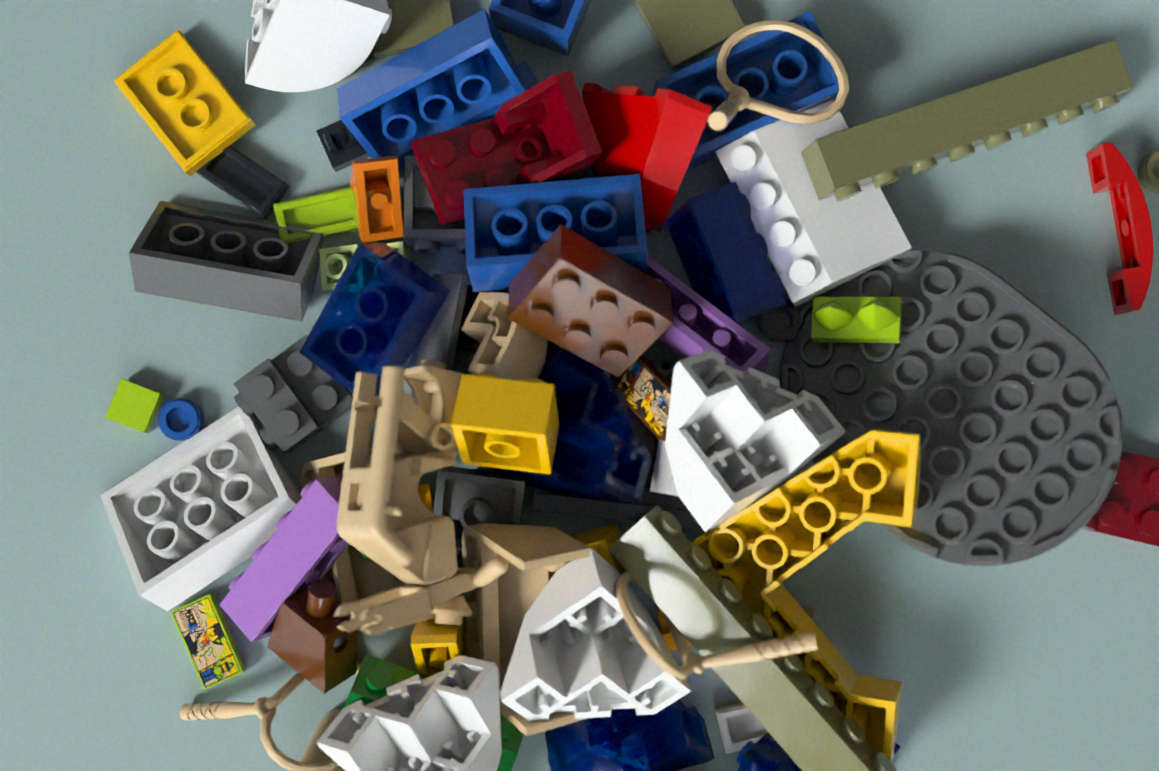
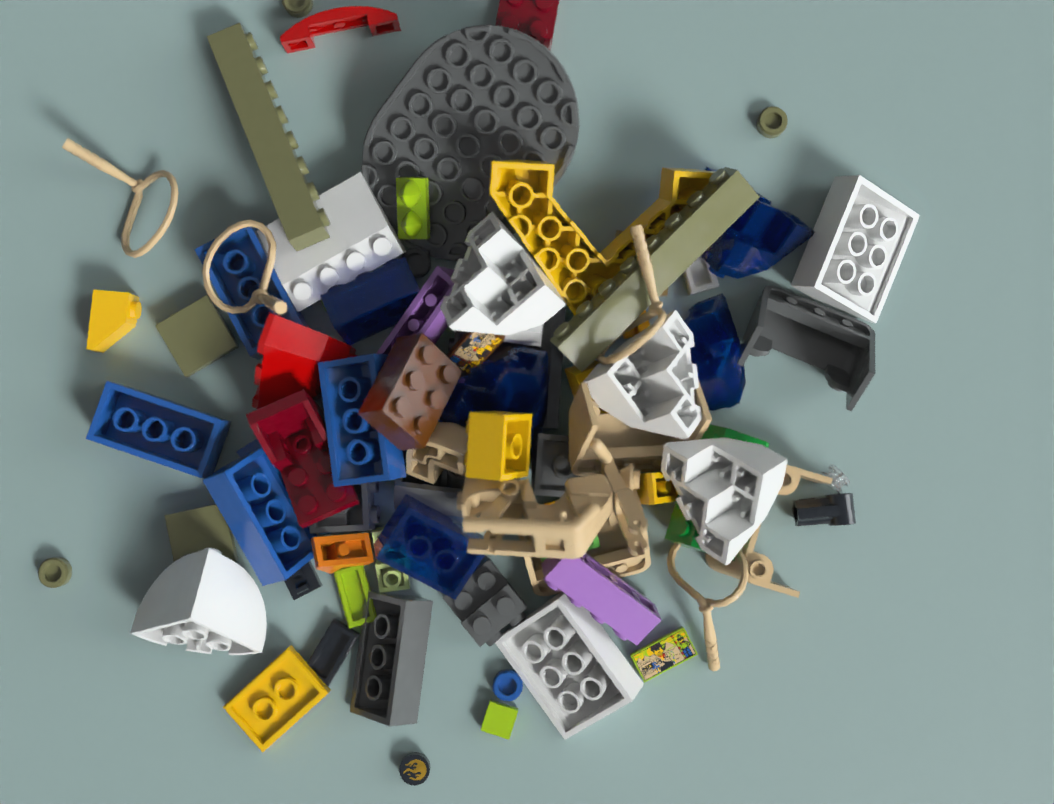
camera: 90 degrees left, 0 degrees up
(76, 286) = (414, 768): none -> black tile
(310, 640) = (654, 575): reddish brown torso -> none

